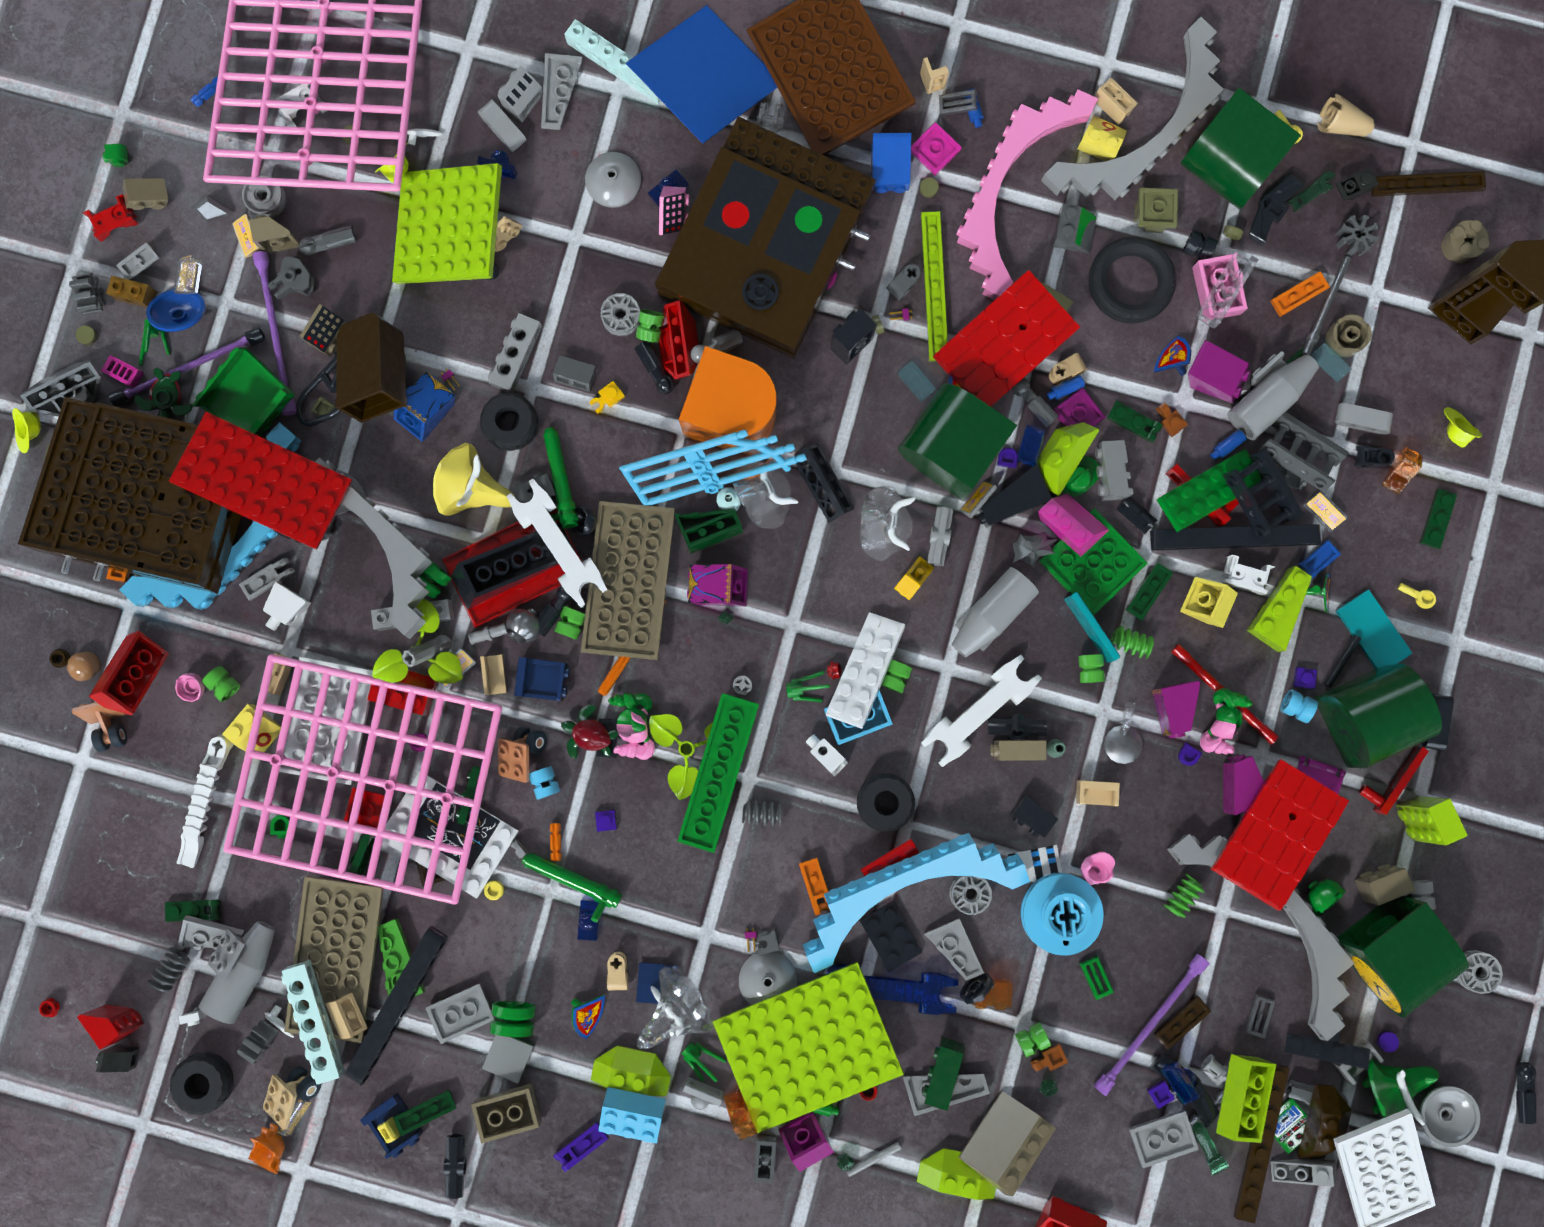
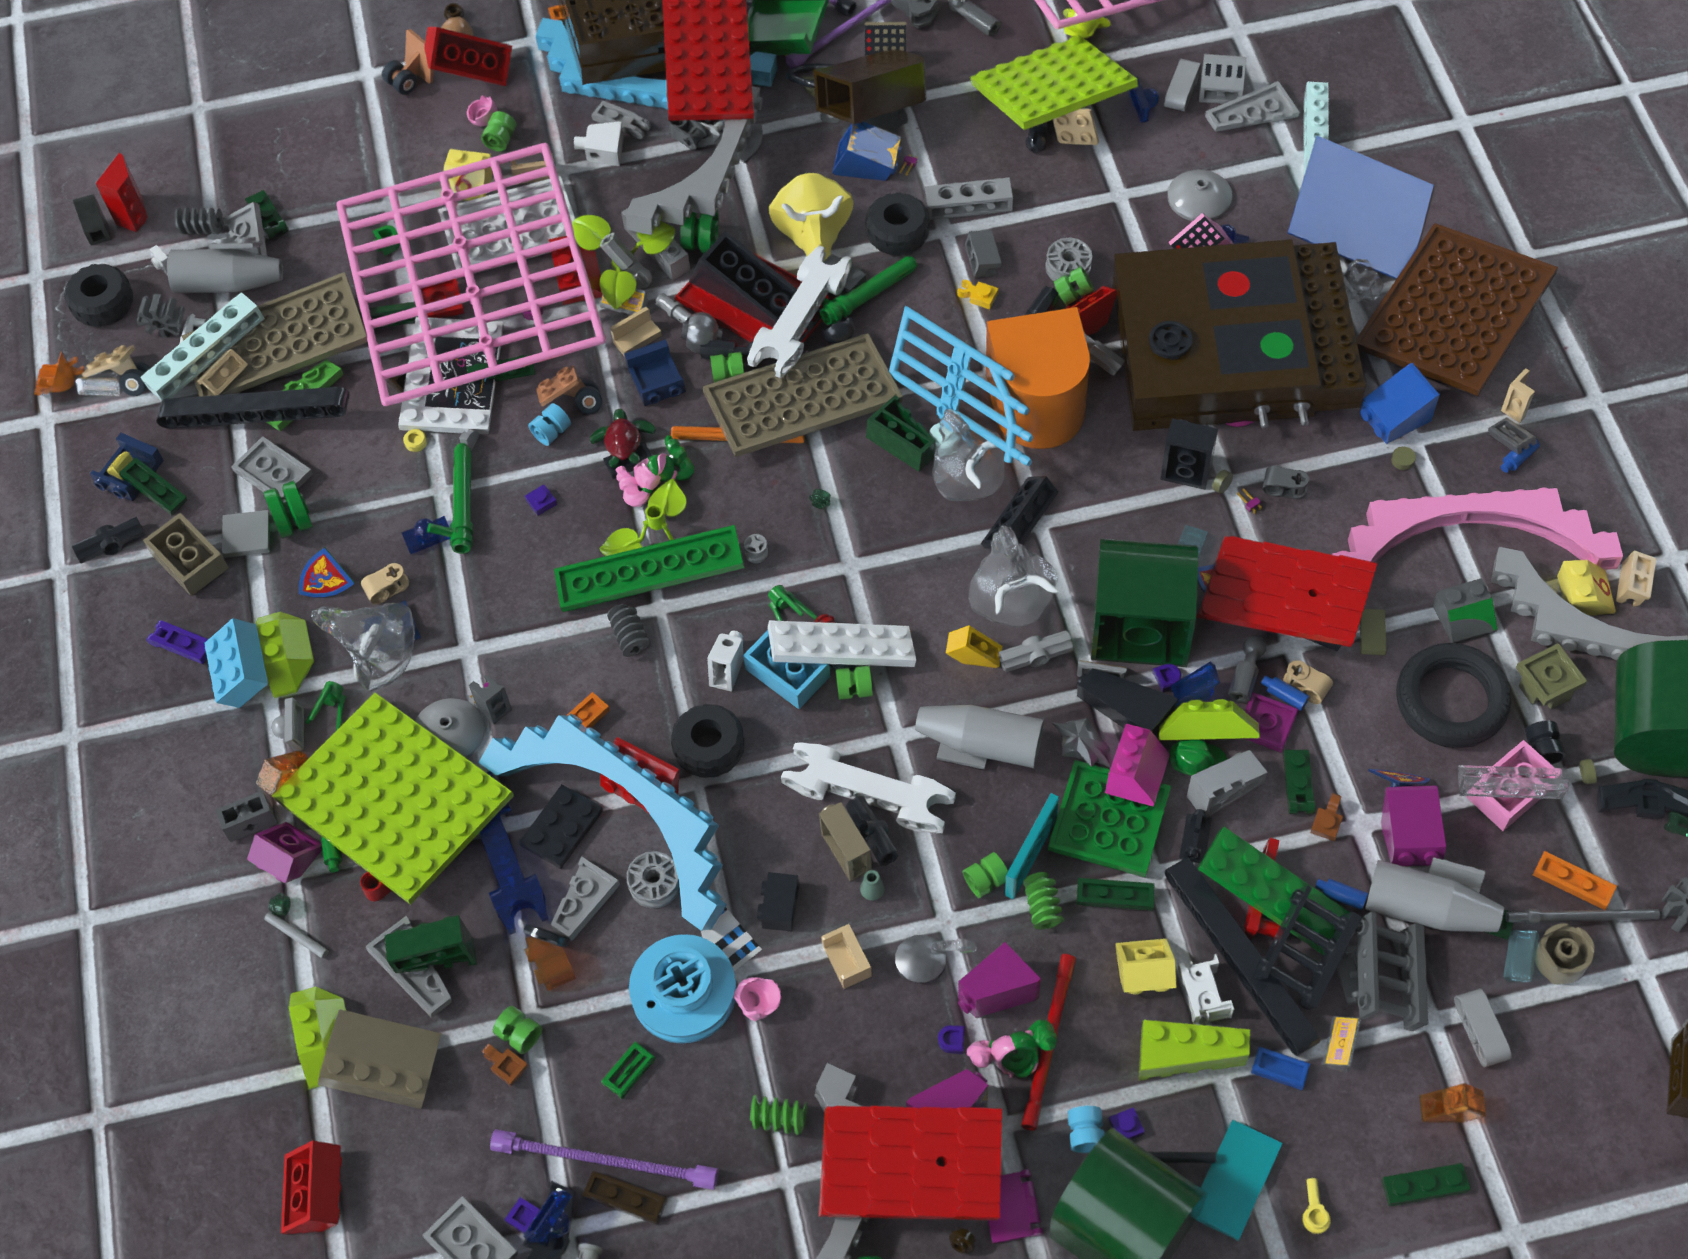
camera: 65 degrees right, 25 degrees down
(44, 1008) = (114, 150): red plate -> none
(191, 839) = (331, 184): white piece -> none
(414, 133) = (1128, 31): white bar -> none
(555, 842) = (494, 466): orange axle -> none
(717, 585) = (848, 474): magenta slope -> none
(934, 282) = (1315, 504): lime plate -> none
(935, 149) = (1447, 441): dark pink plate -> none
(1048, 1087) = (468, 1079): clear green plate -> none
(1316, 590) = (1244, 1086): green shield -> none
(1370, 457) = (1441, 1058): black piece -> none
(1459, 428) = (1554, 1145): neon yellow piece -> none

